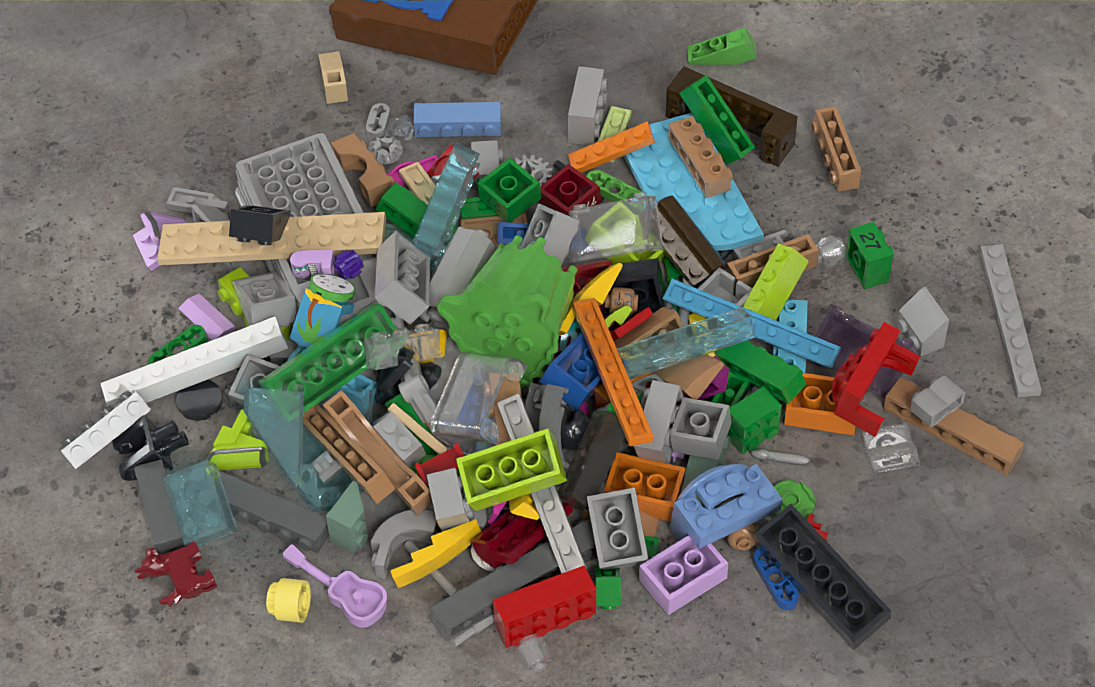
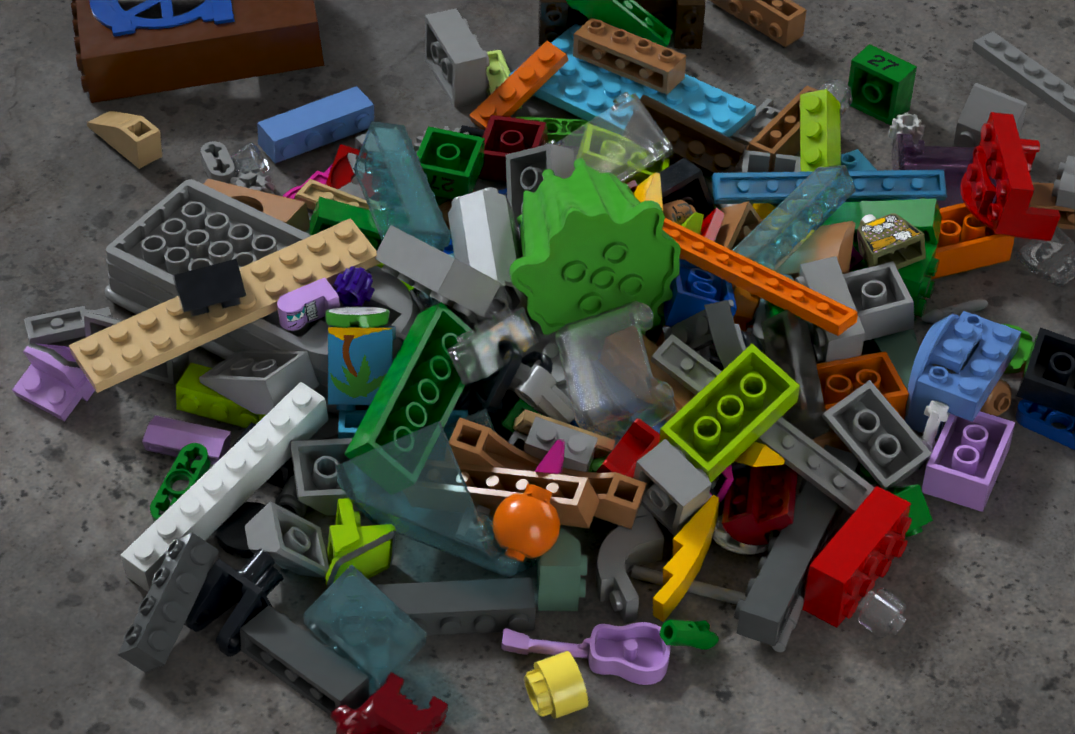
camera: 35 degrees left, 10 degrees down
(200, 421) = (288, 540): none -> light grey slope
(331, 483) = (526, 523): none -> orange brick
(380, 447) = (553, 459): none -> dark pink slope
(399, 604) = (688, 634): none -> green bar
(675, 532) = (936, 412): none -> white bar
(740, 388) = (890, 240): none -> olive torso
(863, 300) = (907, 124): none -> white gear

